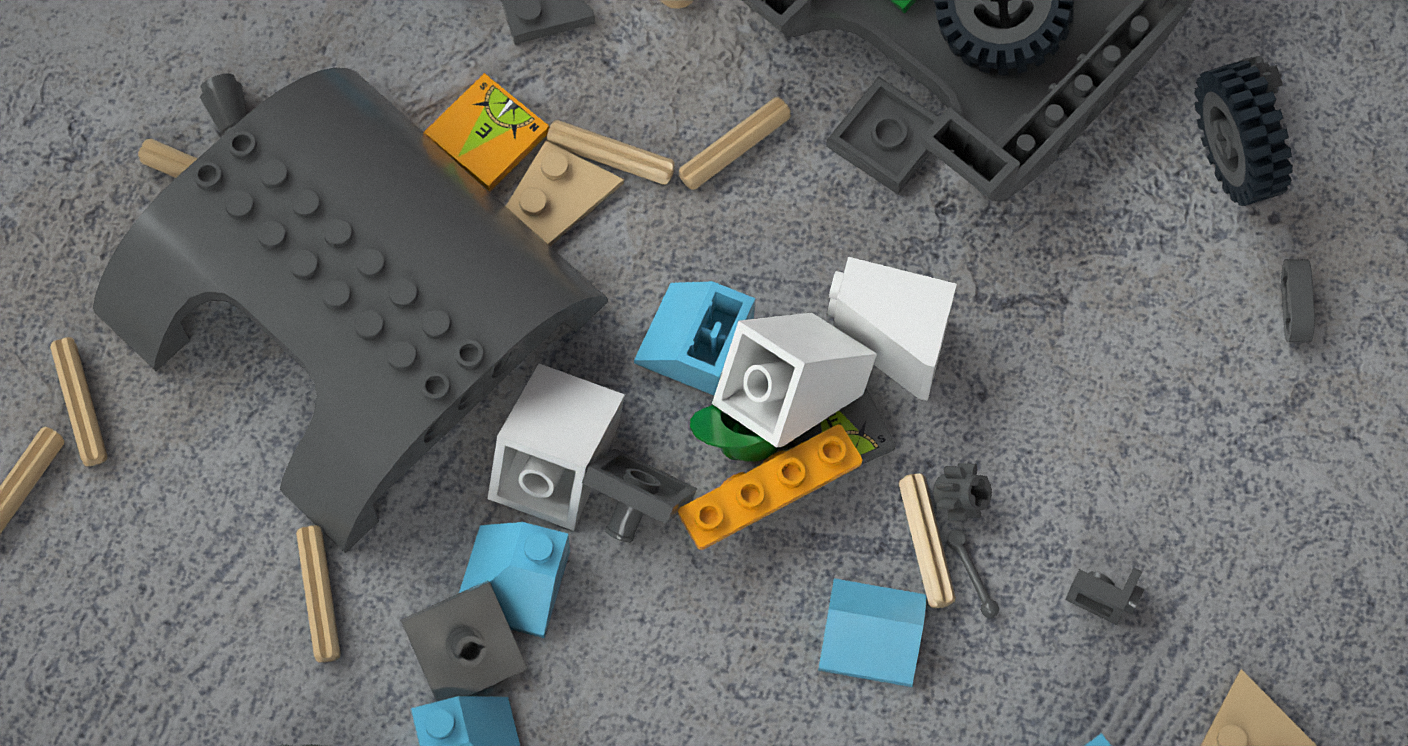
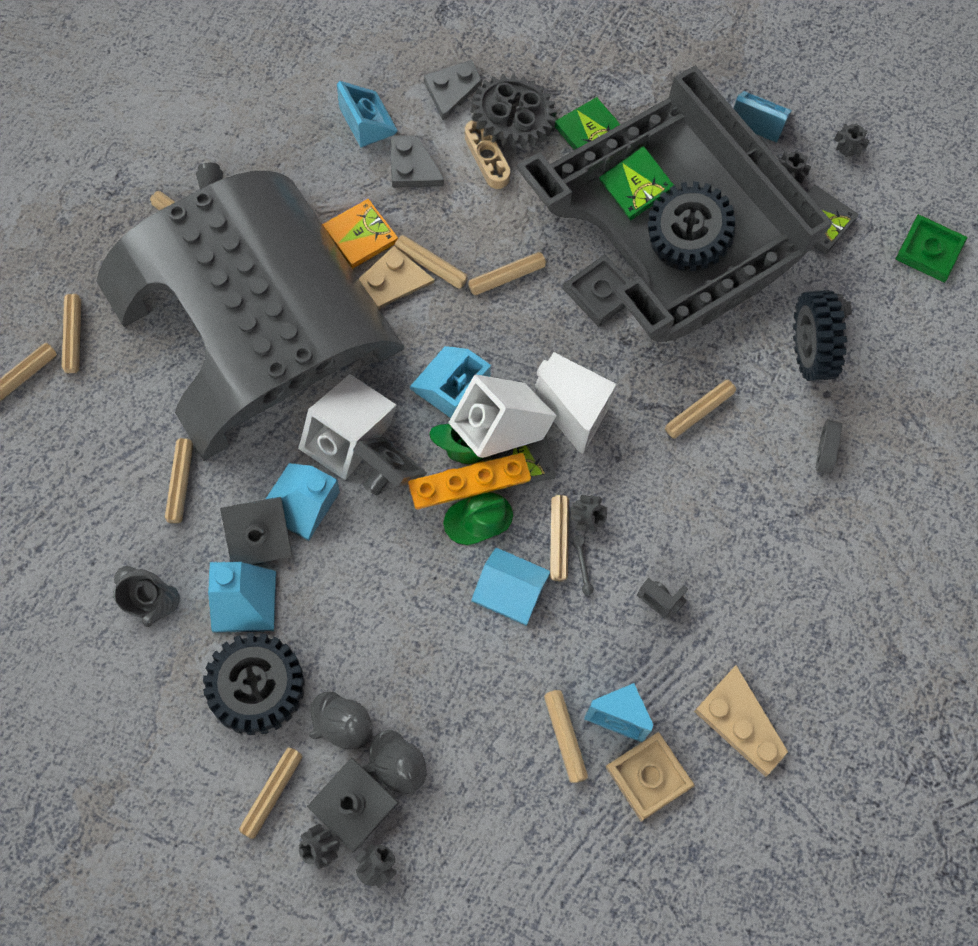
camera: 10 degrees right, 0 degrees up
(794, 541) = (478, 518): none -> green piece
(1088, 288) = (700, 409): none -> tan axle

